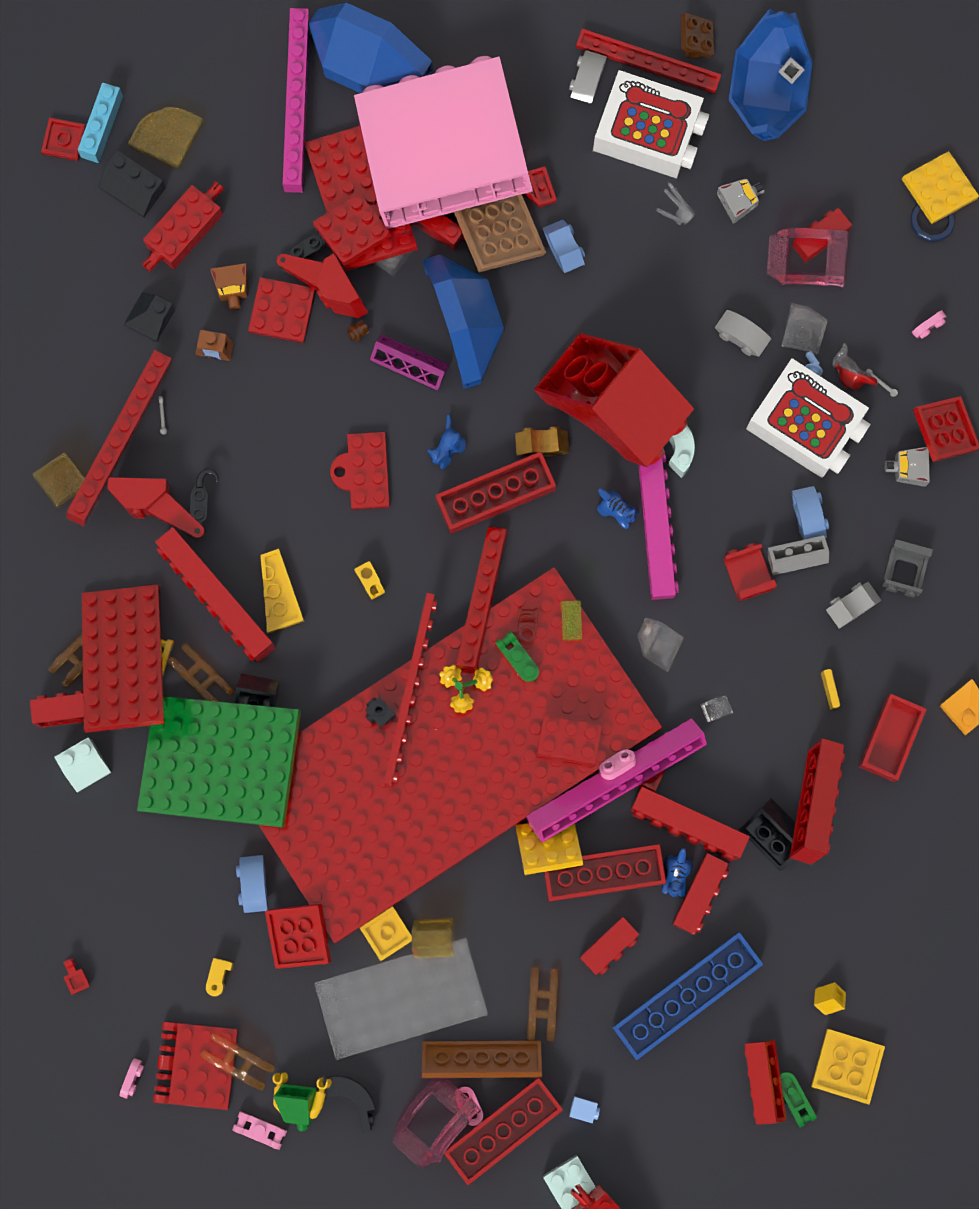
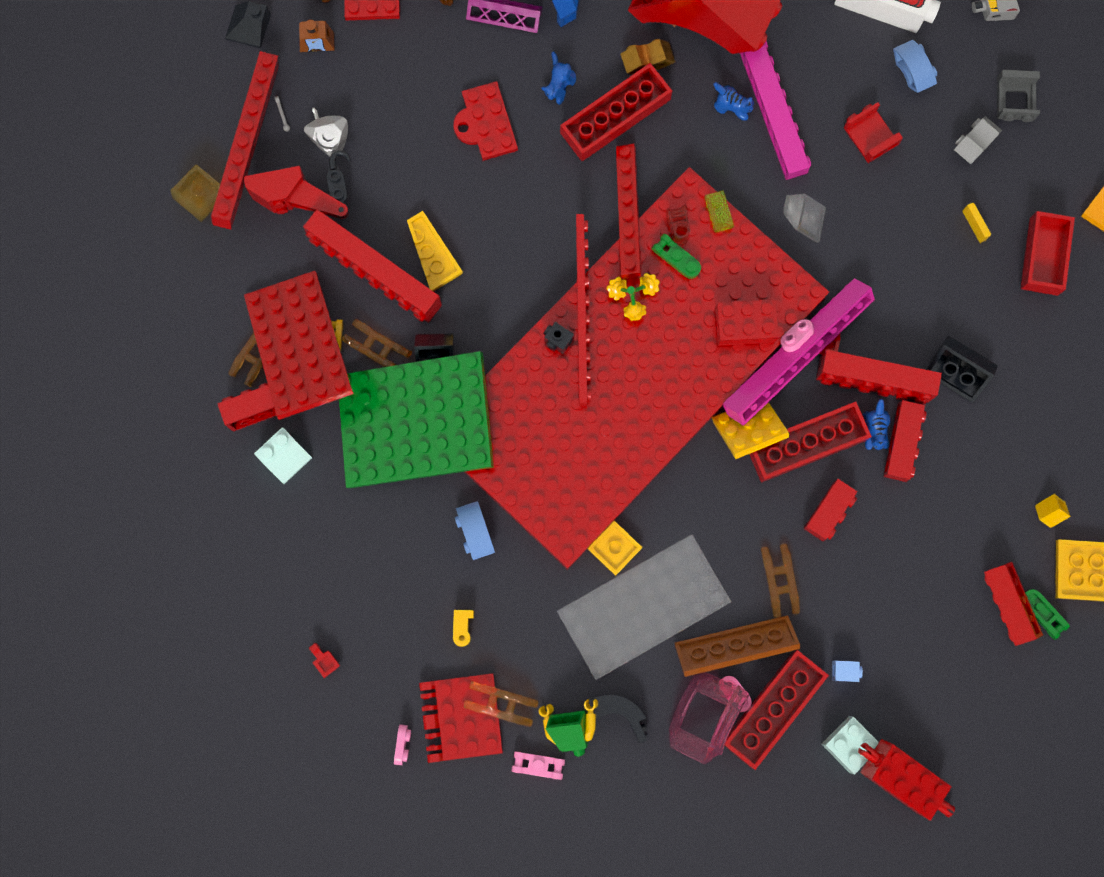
camera: 10 degrees left, 0 degrees up
(203, 447) = (328, 132): none -> light grey hat
(298, 936) = (531, 569): red plate -> none
(369, 580) = (516, 220): yellow leg -> none
(433, 938) = (661, 541): clear yellow slope -> none
(683, 451) = (782, 36): light aqua brick -> none
(687, 996) = (917, 539): blue brick -> none
(716, 708) = (874, 265): clear brick -> none
(798, 555) = (915, 105): light grey brick -> none
(817, 801) = (996, 326): red brick -> none

